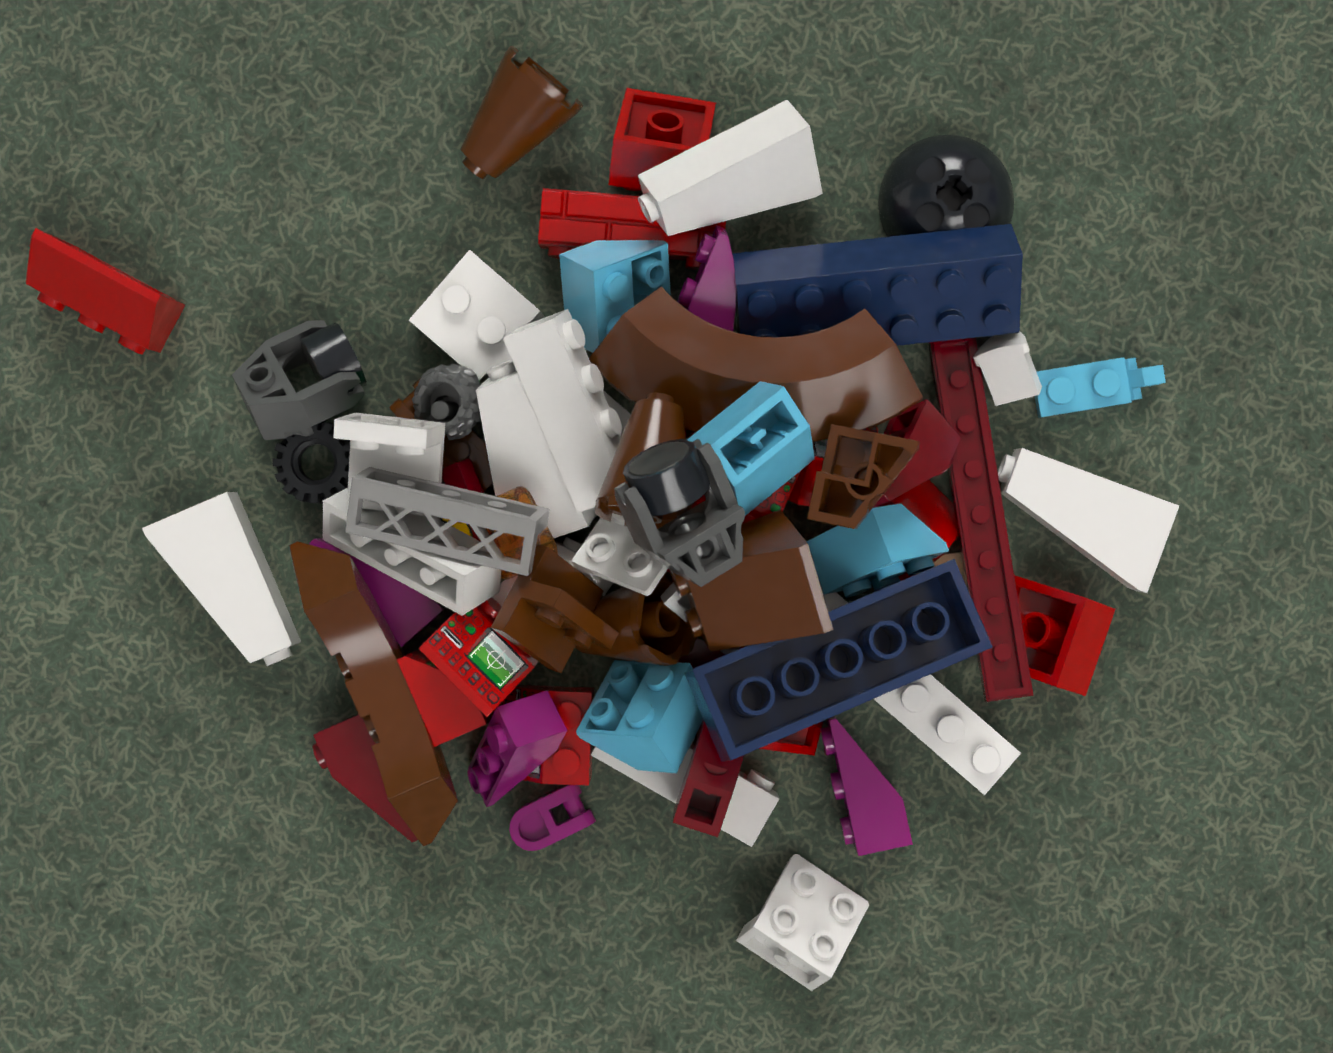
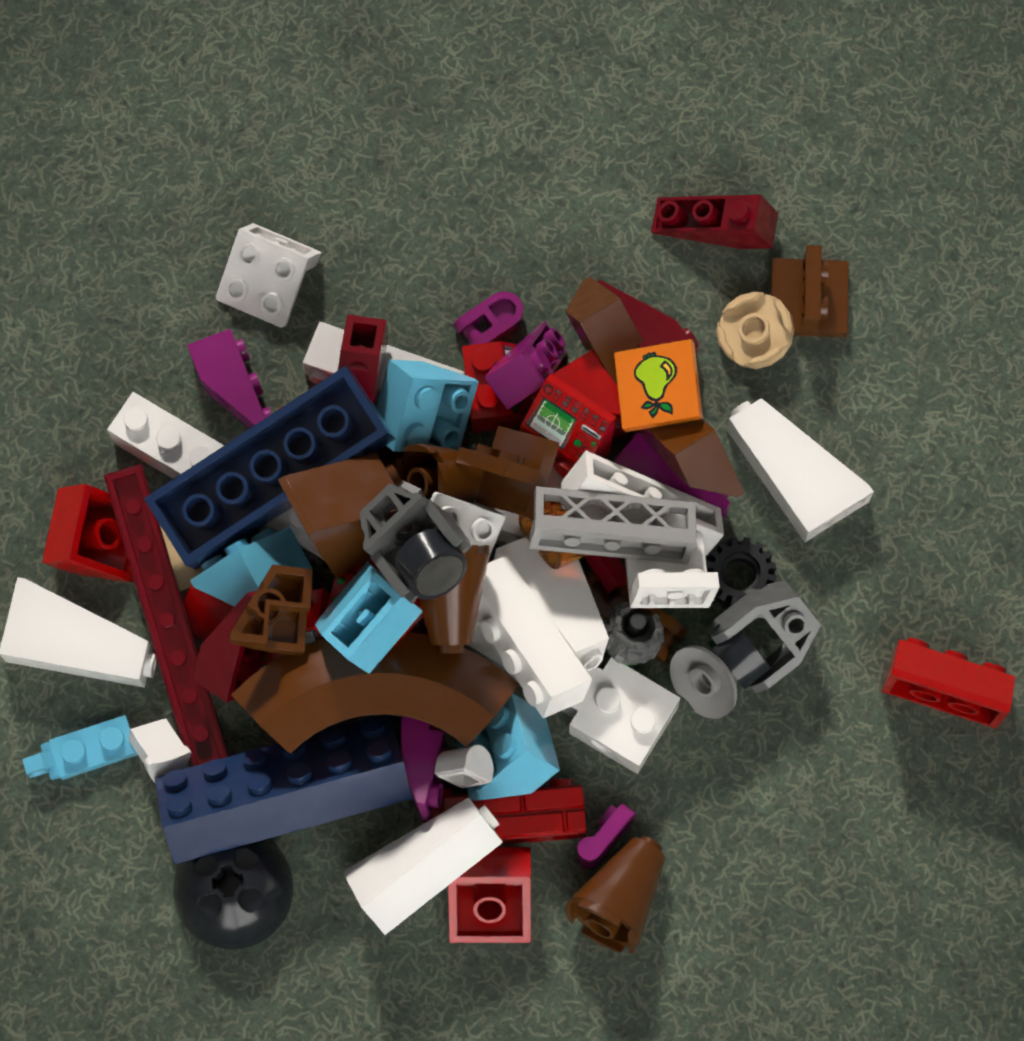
camera: 170 degrees right, 15 degrees down
(173, 786) = (813, 292): none -> reddish brown bracket
(243, 753) = (755, 330): none -> tan tile
(262, 898) = (718, 220): none -> dark red slope
(362, 682) = (658, 385): none -> orange tile
(379, 339) = (703, 681): none -> light grey dish
(510, 197) = (613, 826): none -> magenta plate
(662, 269) = (465, 766): none -> white brick

